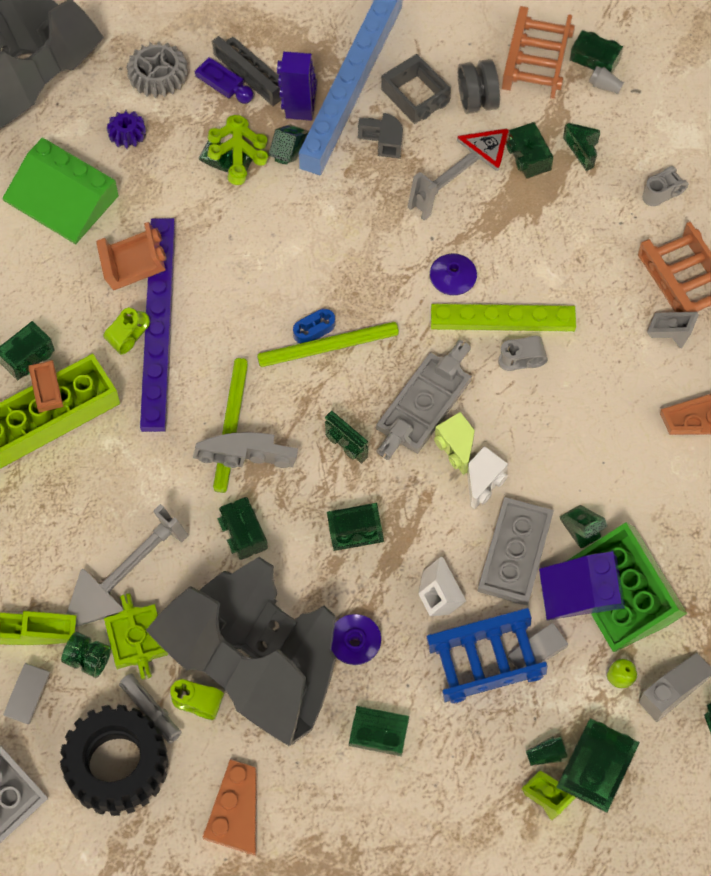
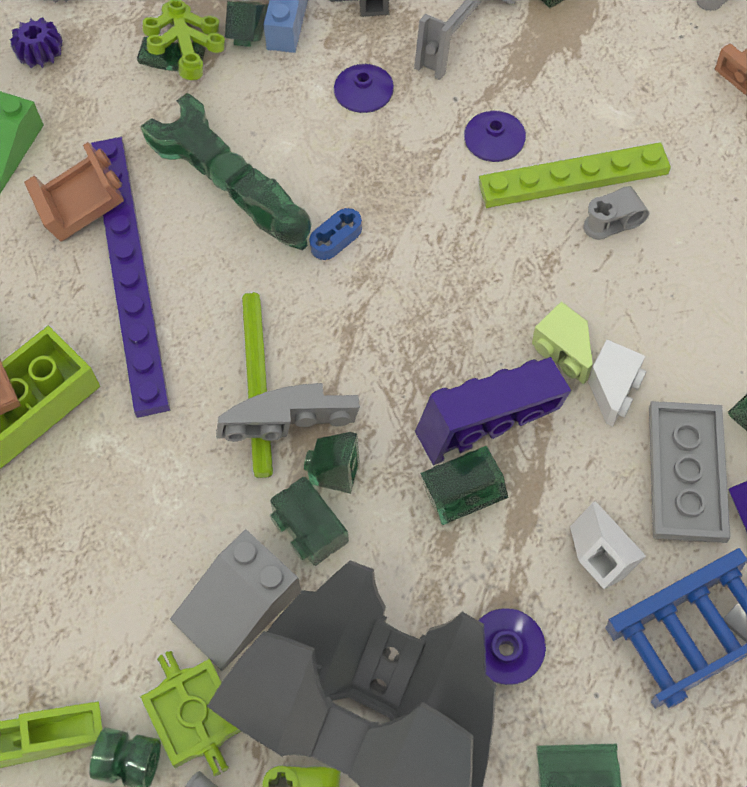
camera: 10 degrees left, 0 degrees up
(92, 600) = (117, 671): light grey piece -> none
(125, 330) = (86, 288): lime piece -> none
(181, 564) = (236, 599): none -> light grey slope
(264, 287) = (250, 189): none -> clear green piece
(270, 492) = (334, 462): none -> clear green slope
(328, 344) = (358, 253): lime axle -> none
(342, 433) = (417, 365): clear green plate -> none
(364, 222) = (363, 88): none -> dark purple dish
(389, 476) = (489, 406): none -> dark purple wedge
(424, 401) = (506, 299): light grey plate -> none

